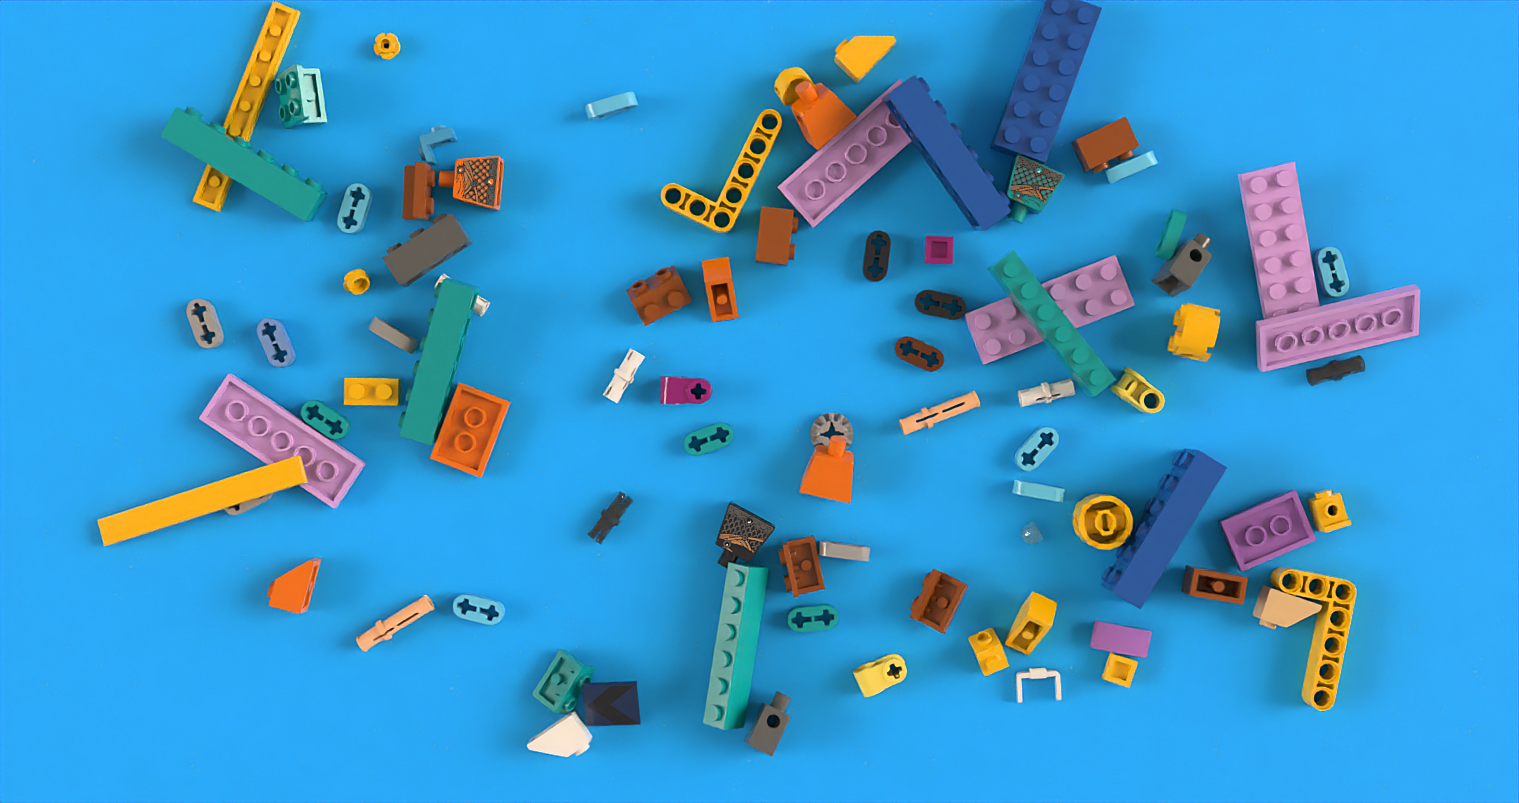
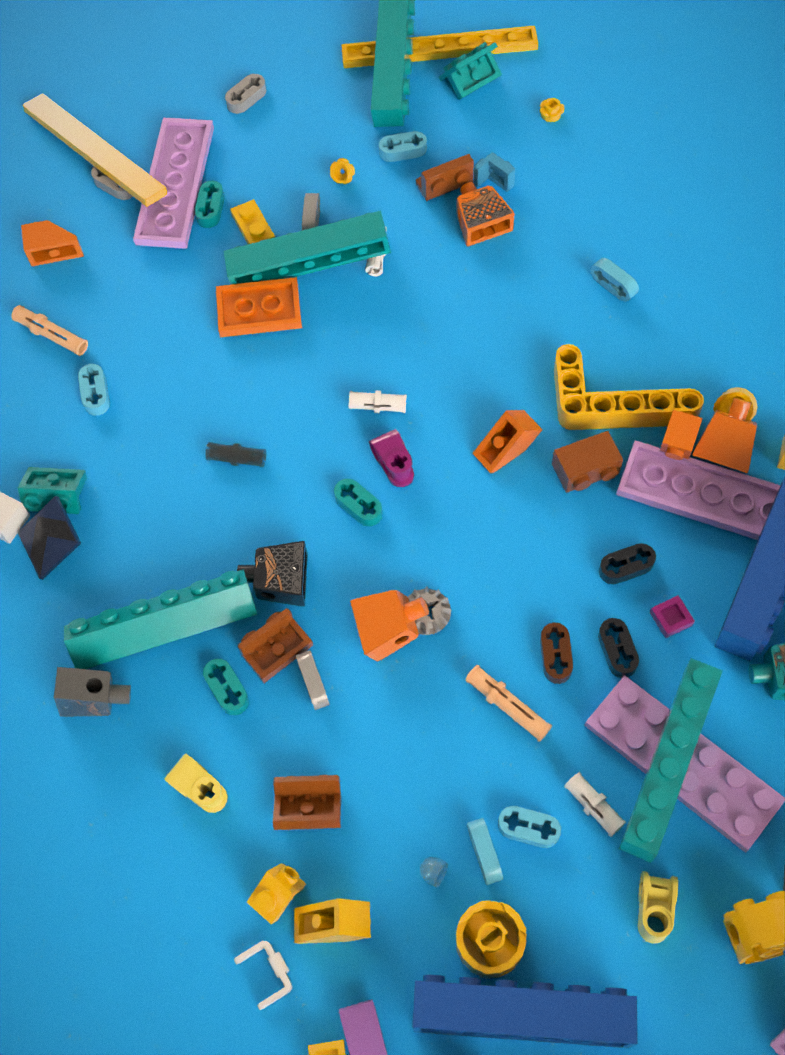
camera: 65 degrees right, 25 degrees down
(282, 341) = (255, 143): medium blue beam -> none
(427, 249) = (400, 206): dark grey brick -> none
(659, 295) = (468, 395): dark orange bracket -> none
(799, 152) = (680, 435): none -> orange slope

